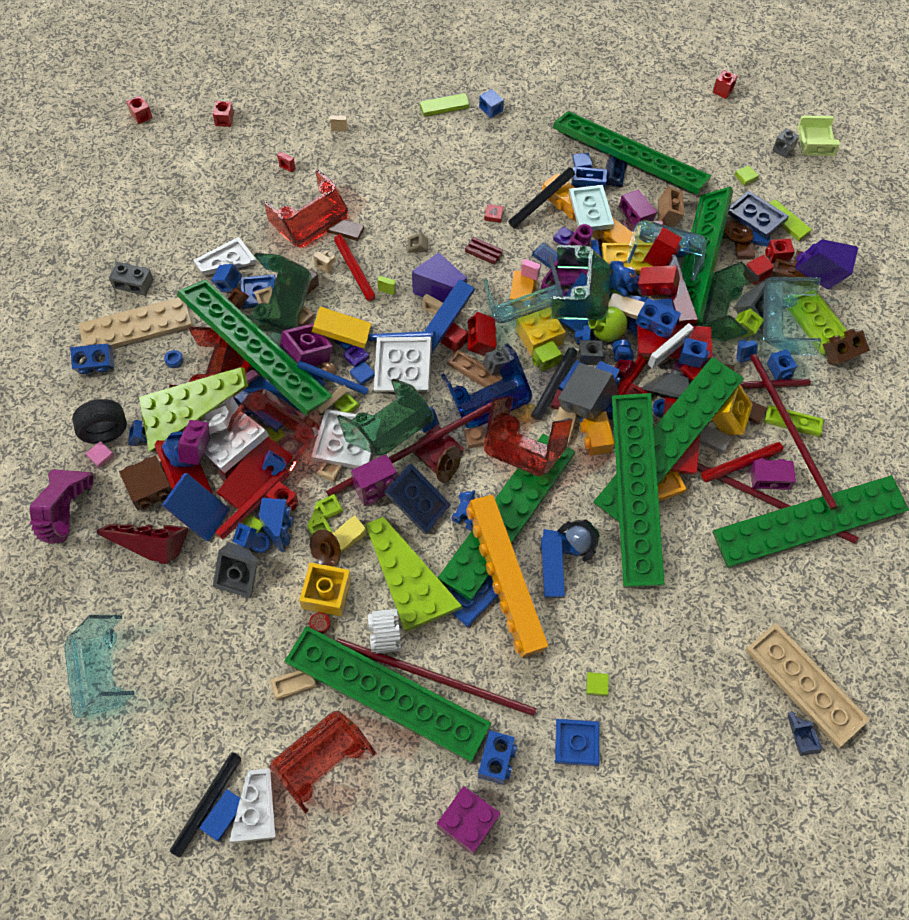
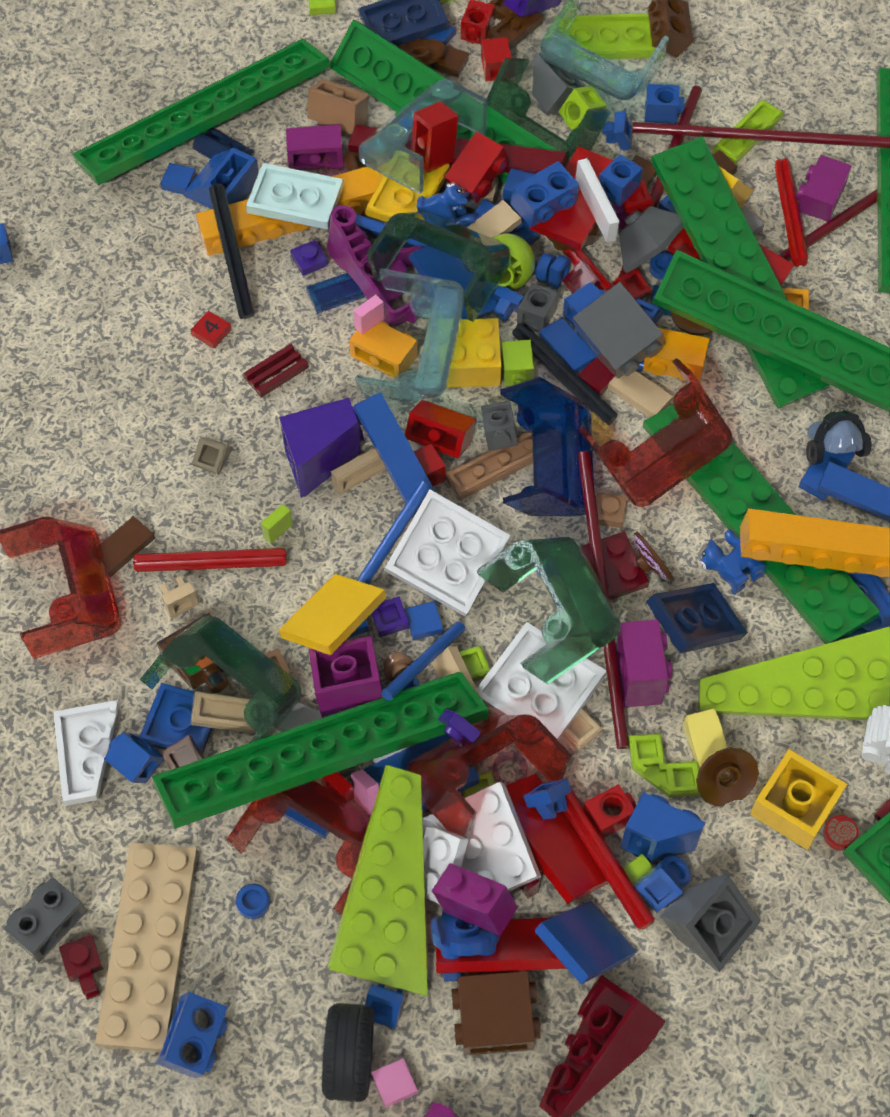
camera: 65 degrees left, 0 degrees up
(117, 302) = (81, 962): none -> dark red plate
(286, 397) = (458, 727): none -> dark purple plate

